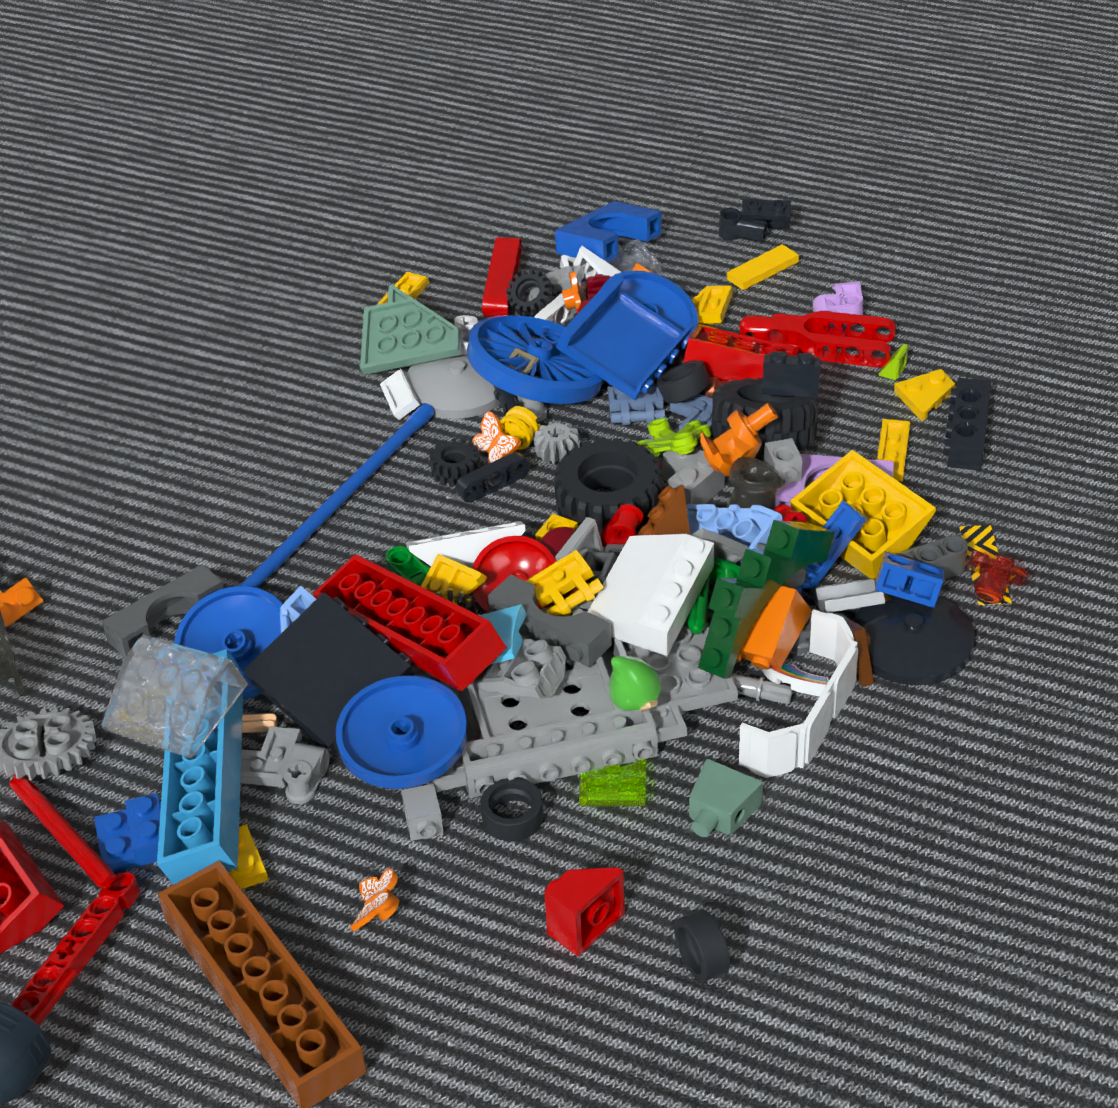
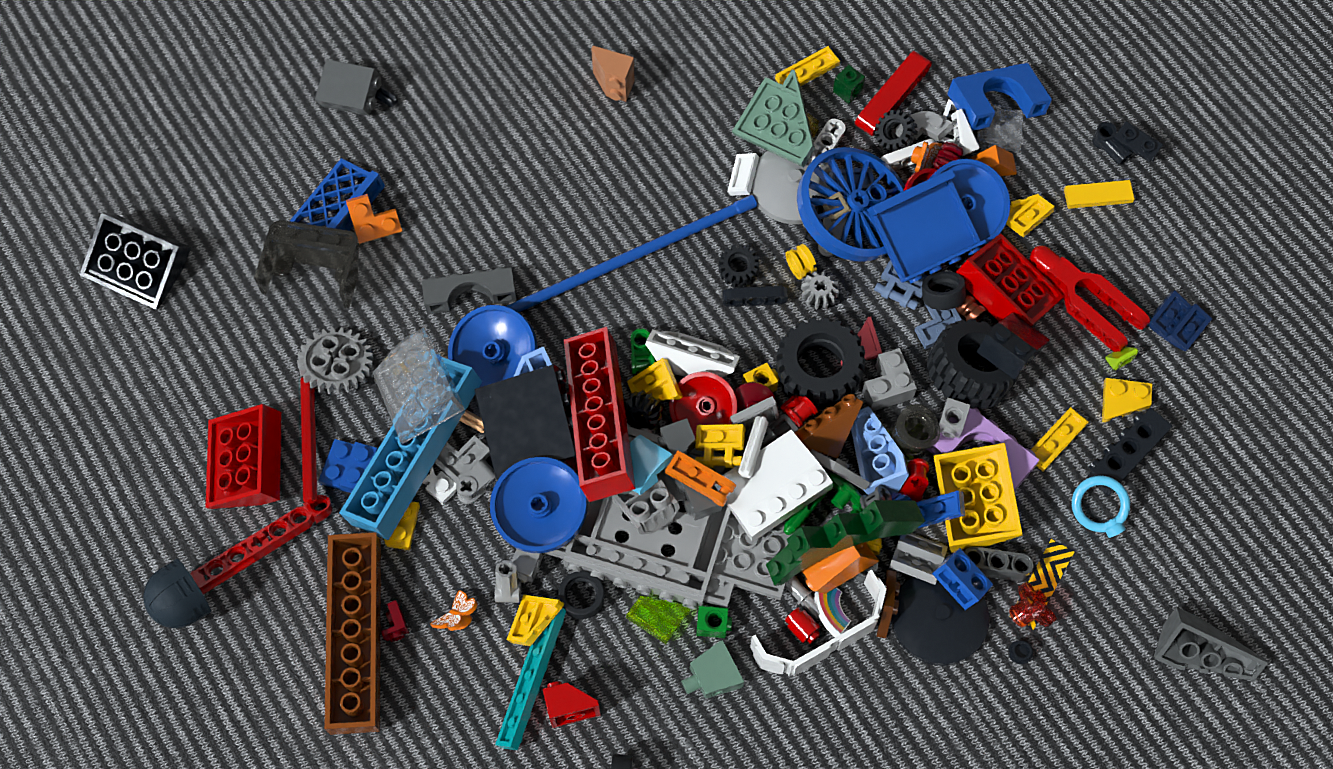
camera: 30 degrees right, 25 degrees up
(193, 370) = (613, 72): none -> nougat slope
(262, 799) = (440, 486): none -> white plate
(305, 947) = (396, 618): none -> dark red bracket
(419, 841) = (507, 584): none -> light grey piece
(452, 286) = (848, 84): none -> dark green brick
(473, 855) = (532, 618): none -> yellow wing
(493, 439) = (777, 264): orange animal -> none
(515, 917) = (528, 685): none -> teal plate
(570, 608) = (700, 478): none -> orange plate
(602, 568) = (753, 447): none -> white axle
(633, 684) = (708, 560): bright green hat -> none
(666, 439) = (893, 358): lime plant -> none
(680, 756) = (706, 613): none -> green brick
(738, 441) = (925, 386): orange piece -> none
(780, 710) = (803, 626): none -> red brick
(846, 300) = (1118, 272): lavender piece -> none
(921, 320) = (1179, 321): none -> dark blue slope
(1009, 482) = (1113, 526): none -> medium azure piece
(1017, 622) = (1020, 652): none -> black plate

